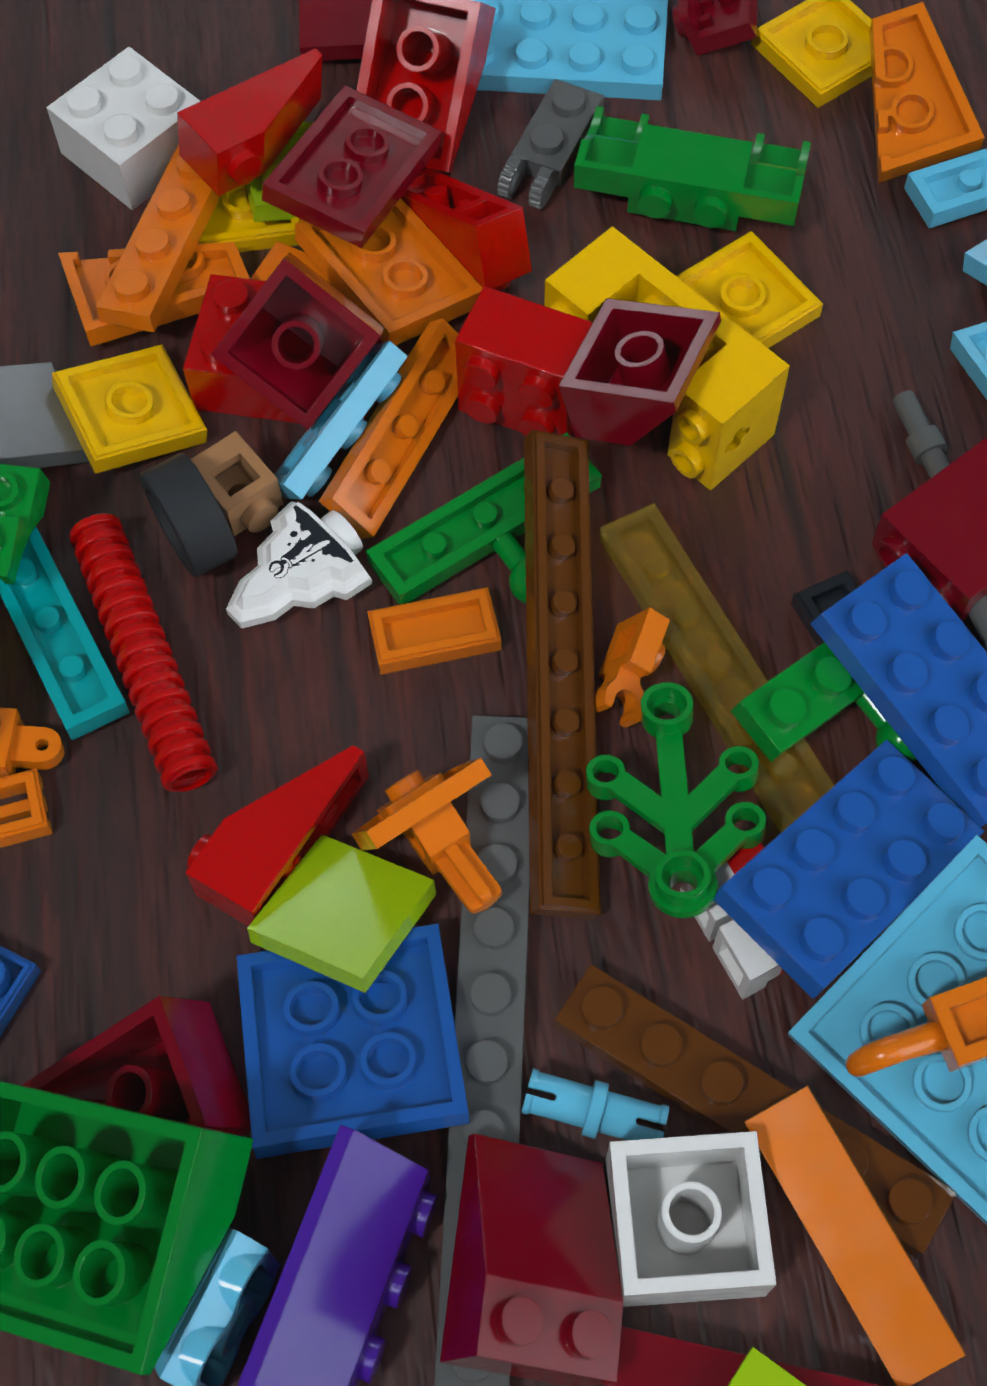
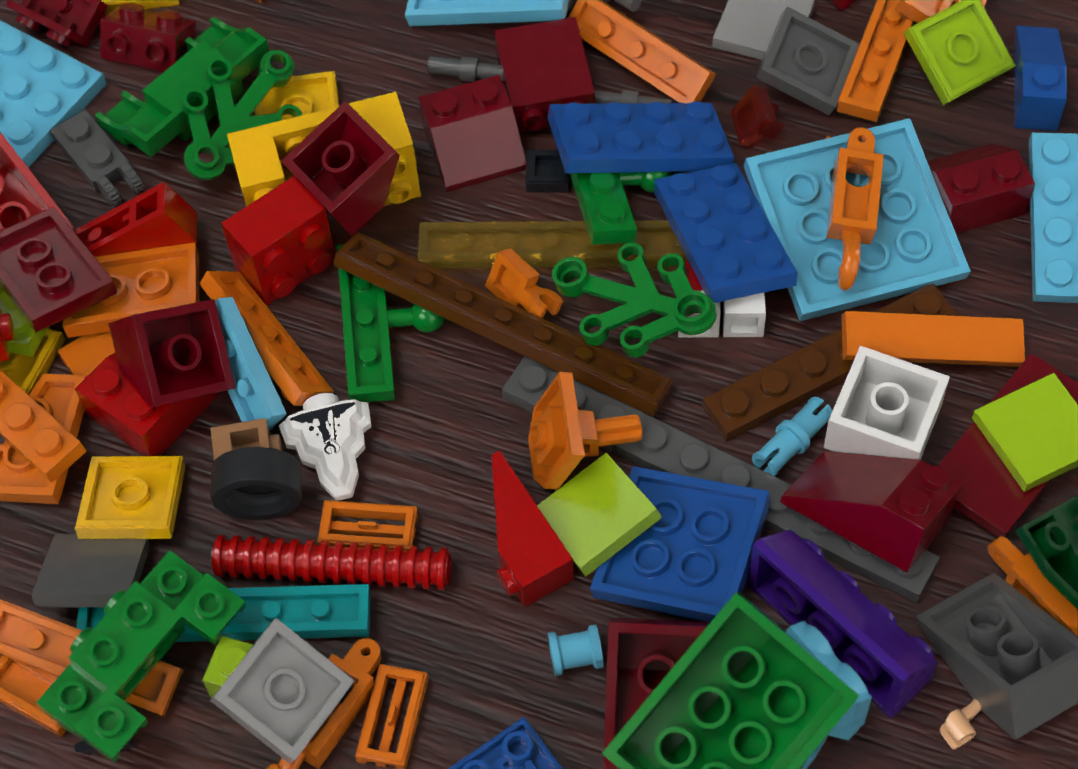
camera: 60 degrees left, 5 degrees down
(144, 972) = (575, 650): none -> medium azure bush
(230, 709) = (368, 528): none -> orange tile
(434, 630) = (424, 388): orange tile -> none
(672, 235) = (230, 117): none -> green plant
(743, 93) = (144, 36): none -> dark red bracket
(824, 493) = (472, 133): none -> dark red slope

